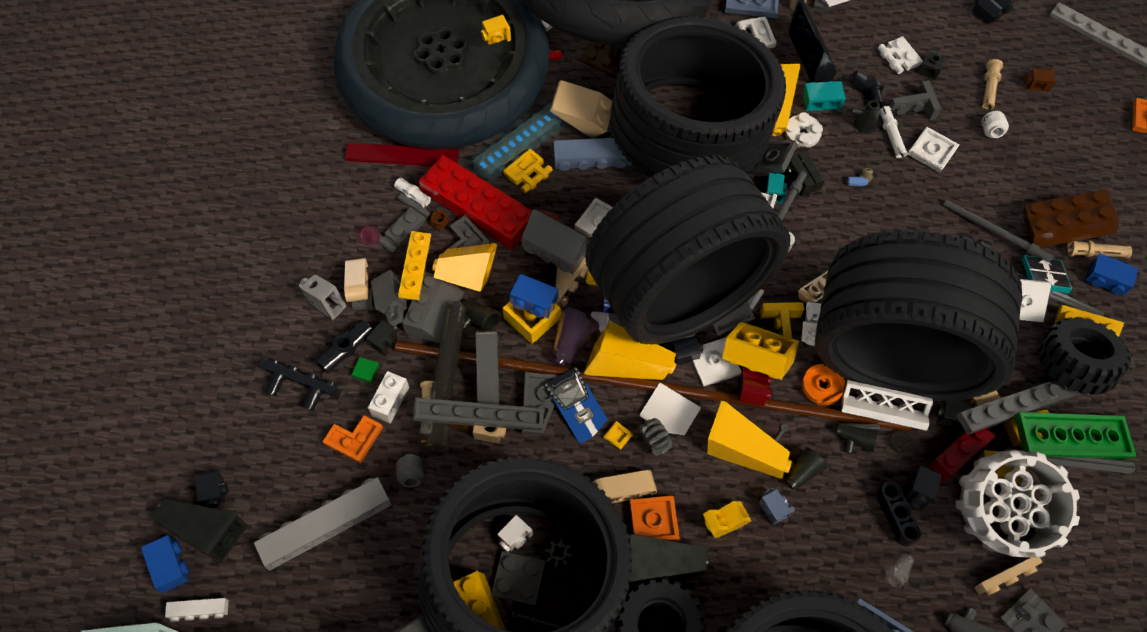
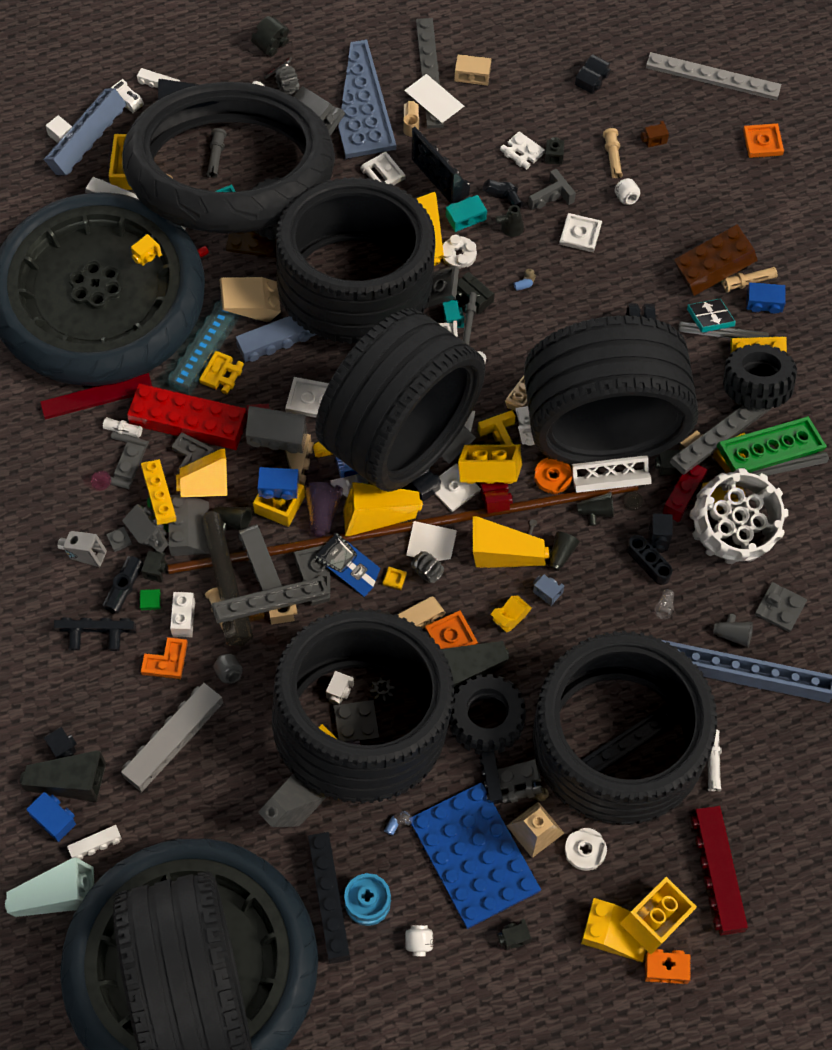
camera: 20 degrees left, 0 degrees up
(356, 280) = (108, 523): tan beam -> none
(439, 215) = (158, 440): reddish brown plate -> none
(890, 125) = (536, 222): white pin -> none
(1009, 576) = (752, 577): tan plate -> none
(1032, 249) = (692, 297): dark grey bar -> none
(1034, 300) = (702, 343): white plate -> none

